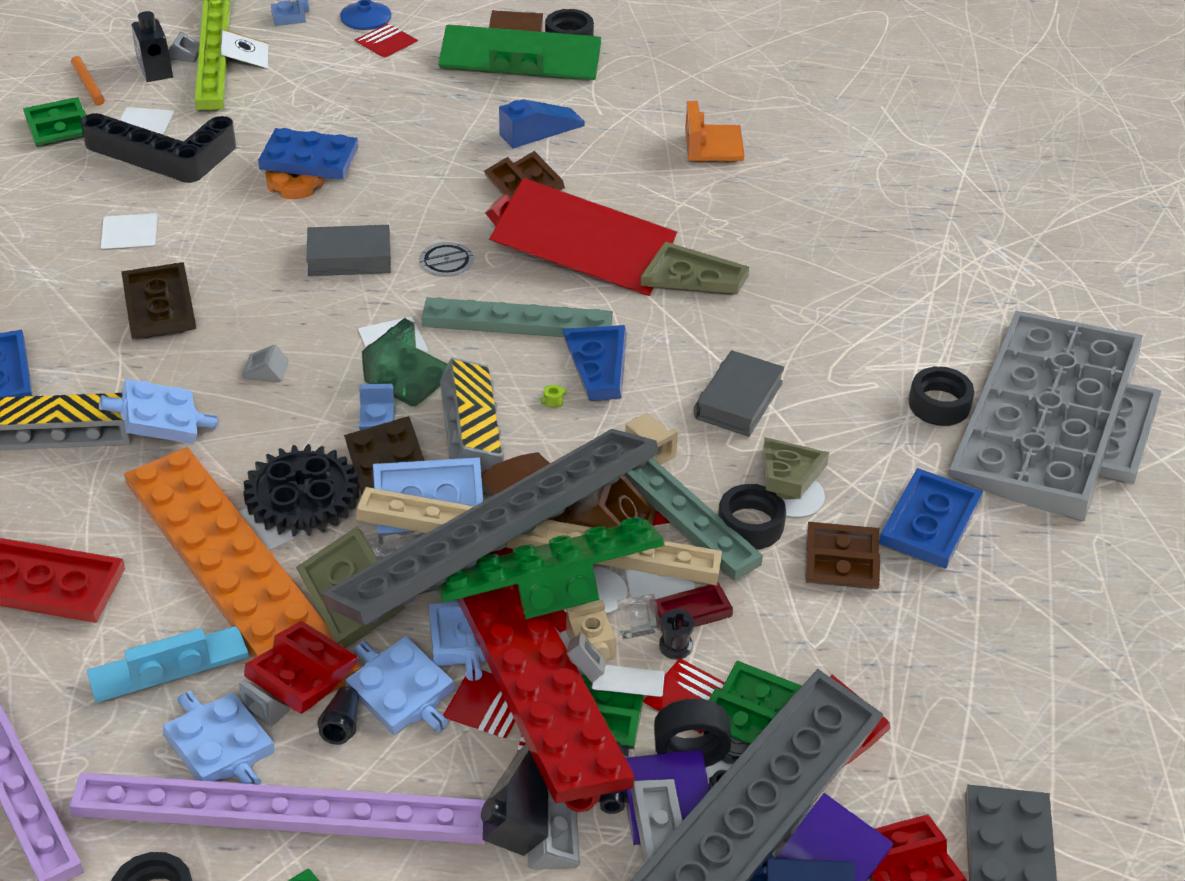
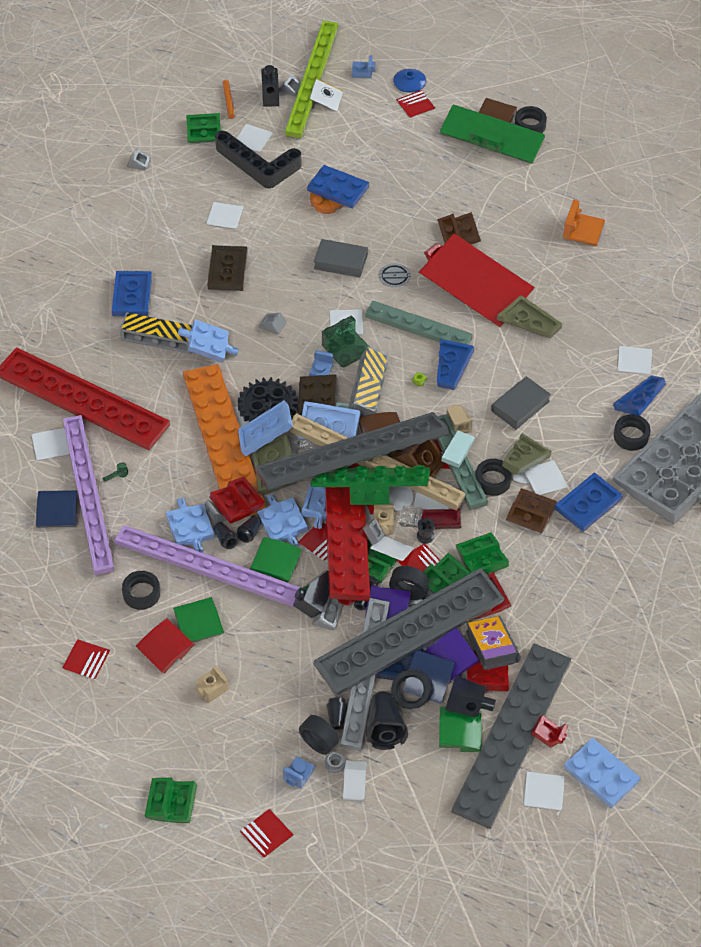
camera: 20 degrees right, 10 degrees up
(50, 674) = (122, 471): none -> clear green hand
(166, 661) = (176, 480): medium azure bracket -> none
(298, 740) = (226, 536): none -> black cone
(315, 526) = (265, 428): none -> light blue plate
(413, 758) = (276, 559): none -> green slope
(532, 121) = (481, 189): blue slope -> none
(674, 483) = (458, 449): none -> light aqua tile
(794, 648) = (482, 553): none -> green slope
(838, 498) = (545, 478): none -> white sticker
(883, 297) = (635, 360): none -> white sticker
(898, 804) = (492, 642): none -> piece
(926, 341) = (641, 396): none -> blue wing

